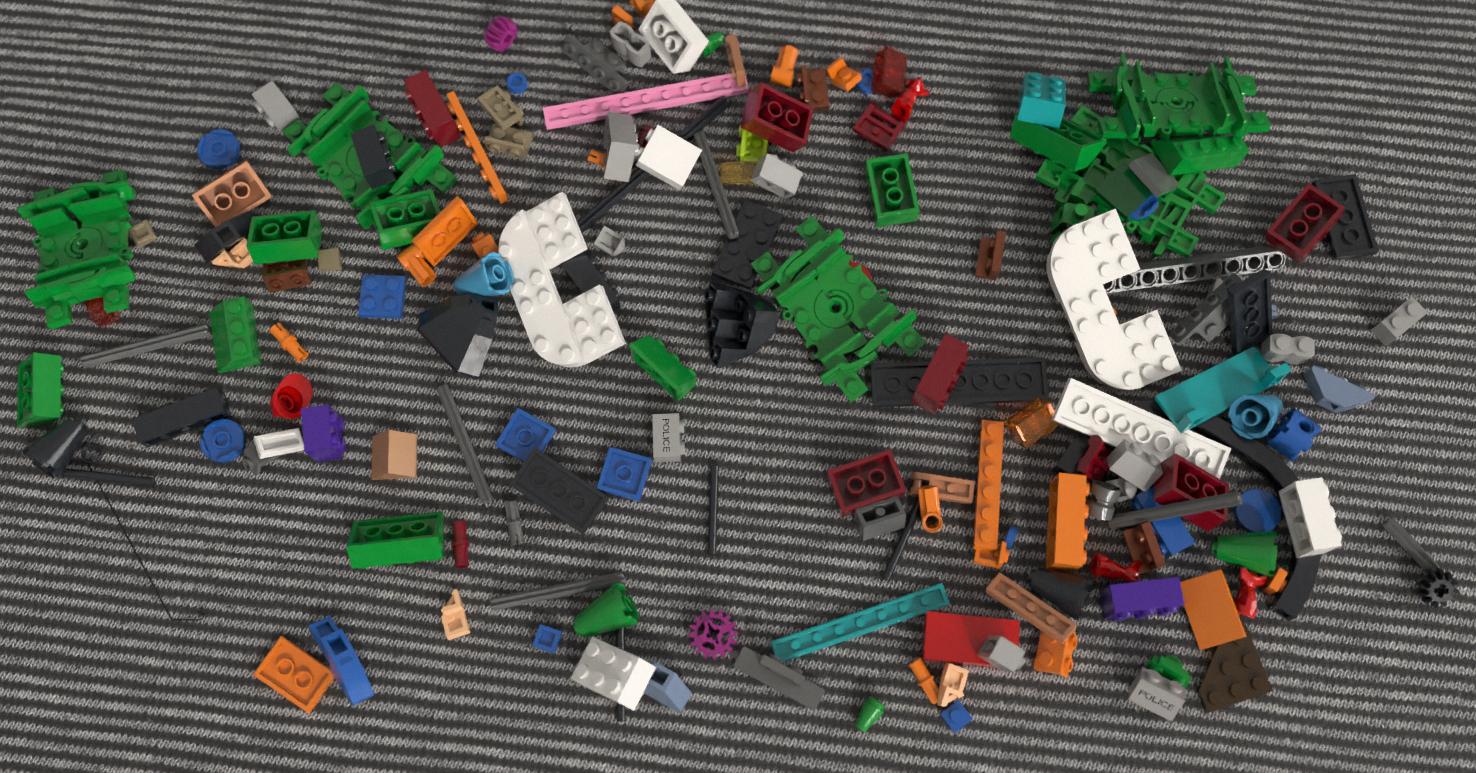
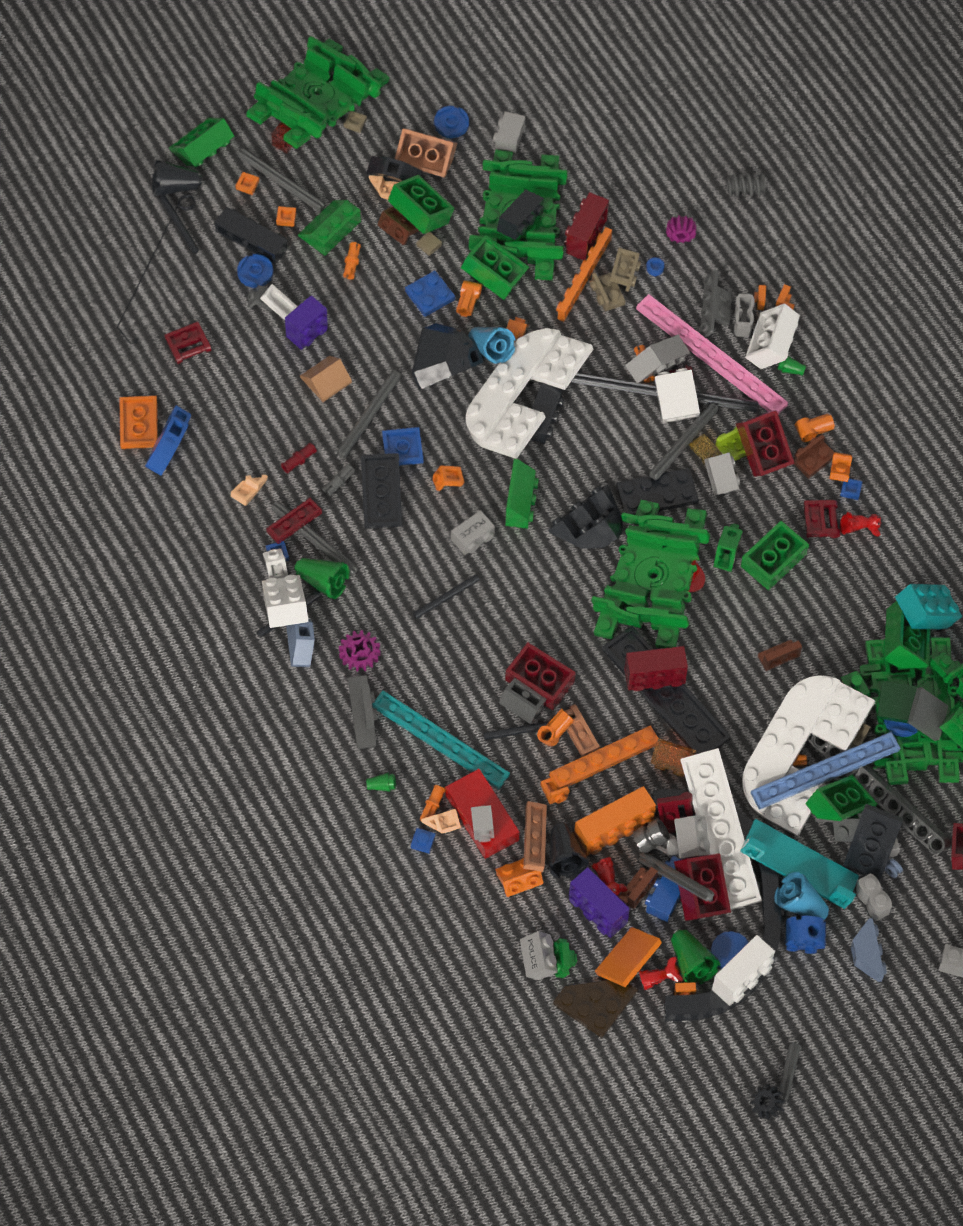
camera: 50 degrees right, 10 degrees down
(122, 380) = (247, 183): none -> orange plate
(189, 369) = (286, 216): none -> orange plate
(240, 561) = (186, 337): none -> dark red plate
(290, 396) = (319, 285): red piece -> none
(396, 540) = (271, 418): green slope -> none
(445, 231) = (505, 296): orange tile -> none
(527, 598) = (294, 520): none -> dark red tile
(559, 650) = (275, 563): none -> white bracket
(590, 419) = (448, 477): none -> orange bracket
(610, 242) = (585, 404): light grey plate -> none
(624, 474) = (426, 524): blue plate -> none
(735, 60) = (788, 390): nougat plate -> none
(853, 222) = (729, 540): none -> green torso
(889, 72) = (868, 496): clear red brick -> none
(1011, 535) = (578, 796): blue tile -> none
(1146, 302) = (825, 770): none -> medium blue tile
(1185, 309) = (839, 800): none -> green slope

